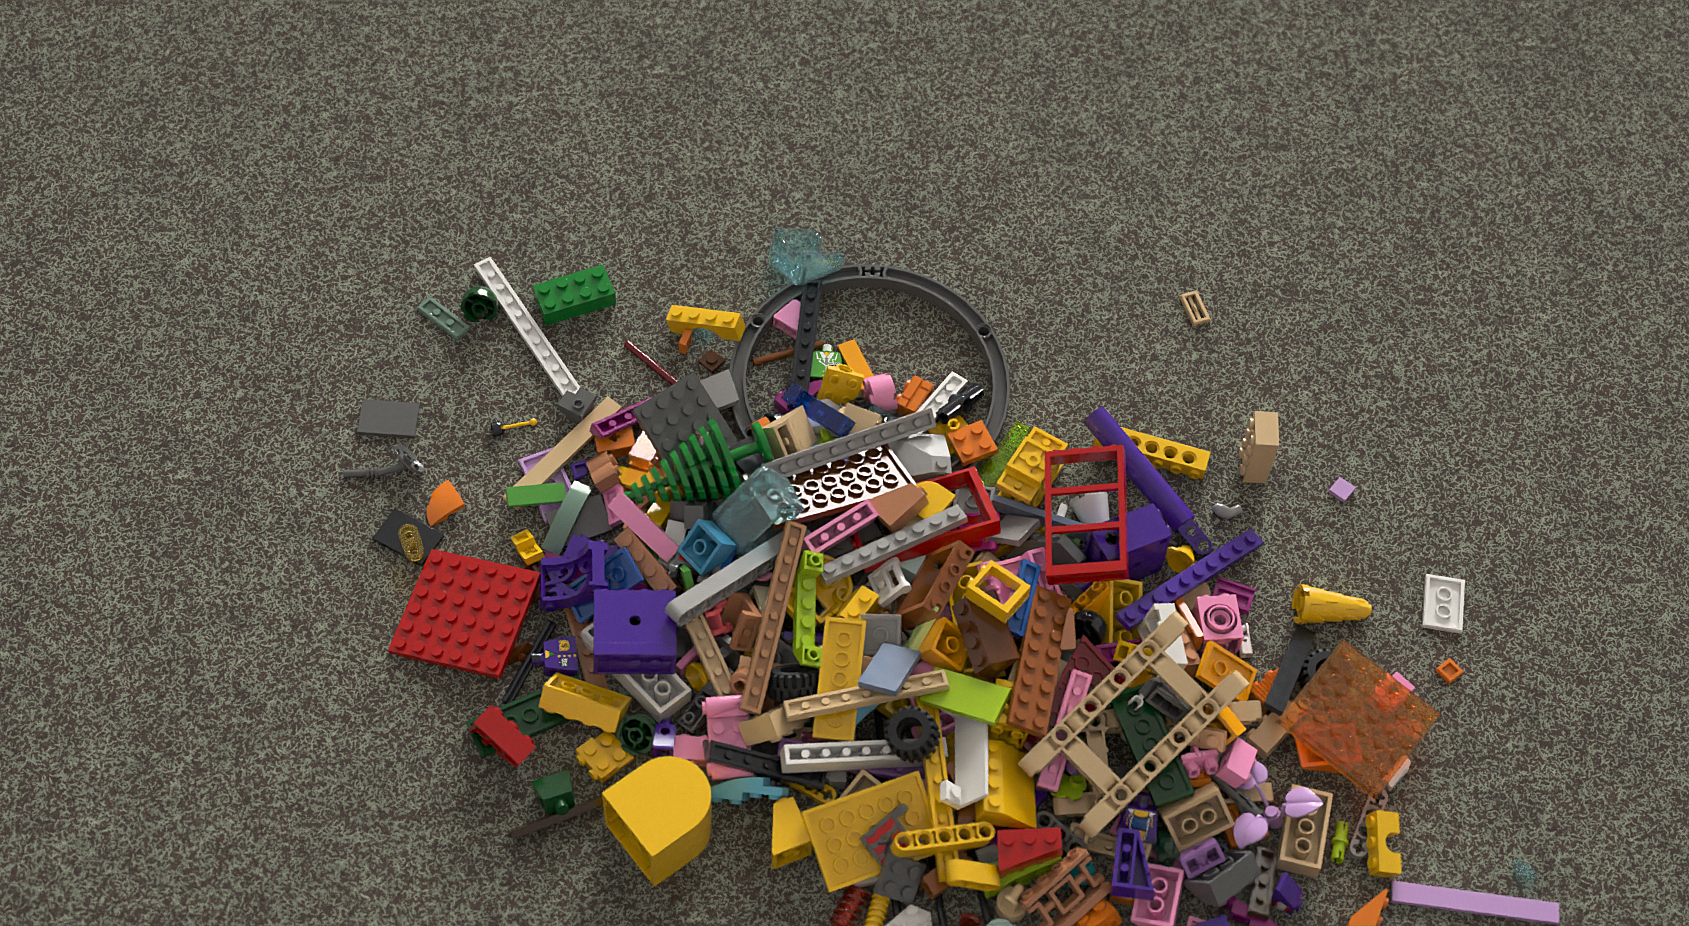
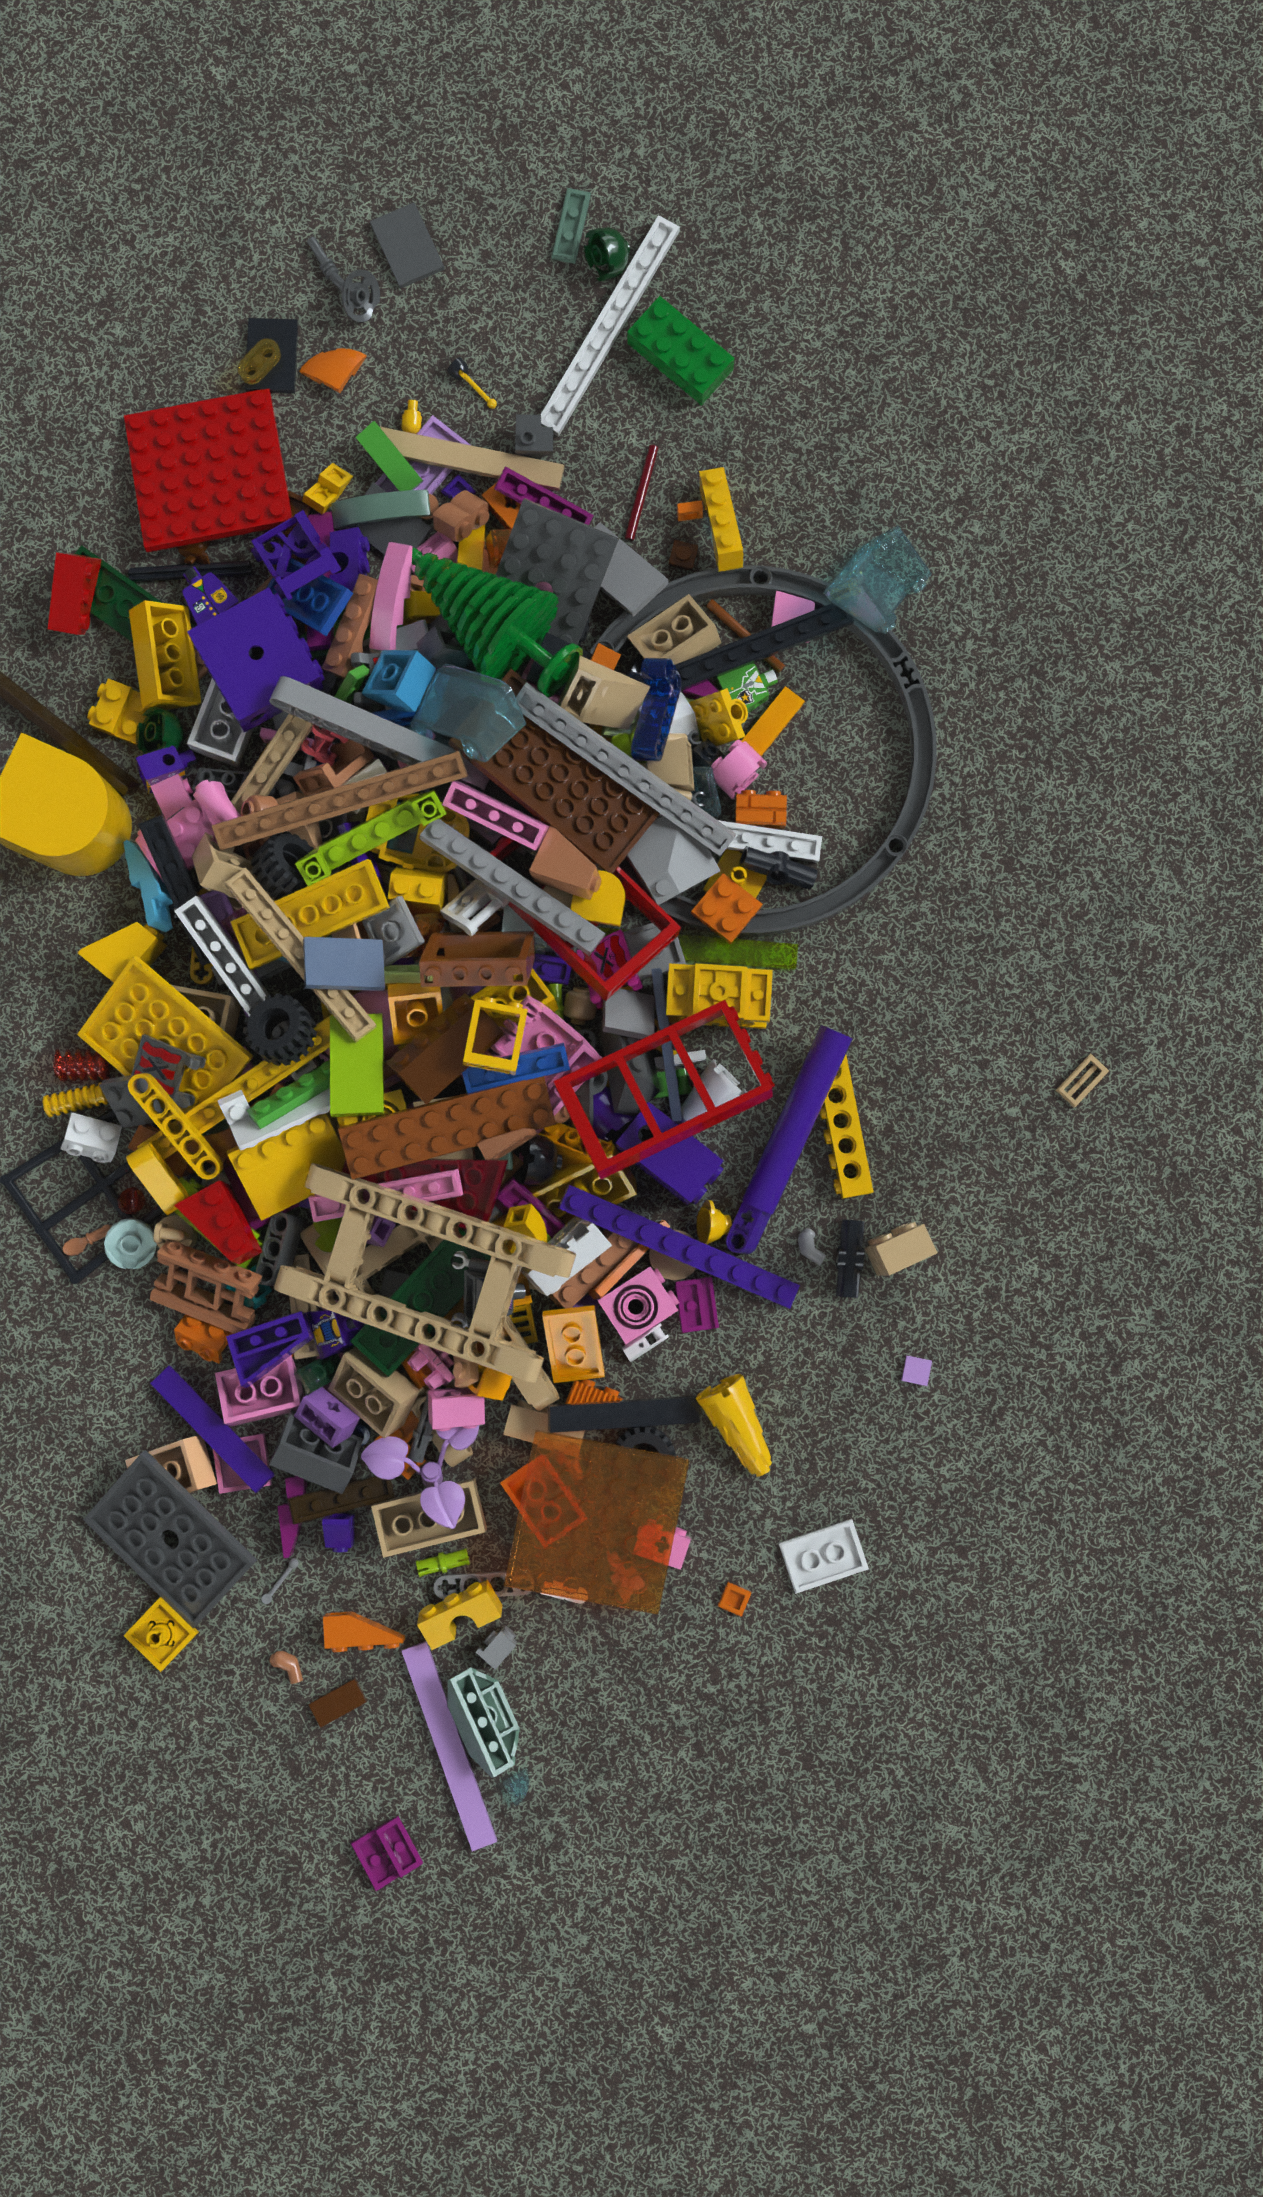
camera: 65 degrees right, 25 degrees up
(511, 472) = (411, 418): none -> yellow cylinder
(555, 792) = (46, 686): dark green torso -> none
(767, 383) = (676, 633): none -> tan slope
(962, 750) = (291, 1096): none -> bright green plate
(1247, 490) = (850, 1258): none -> black piece
(1417, 833) = (497, 1646): none -> light grey brick
(1468, 868) = (483, 1720): none -> sand green wedge

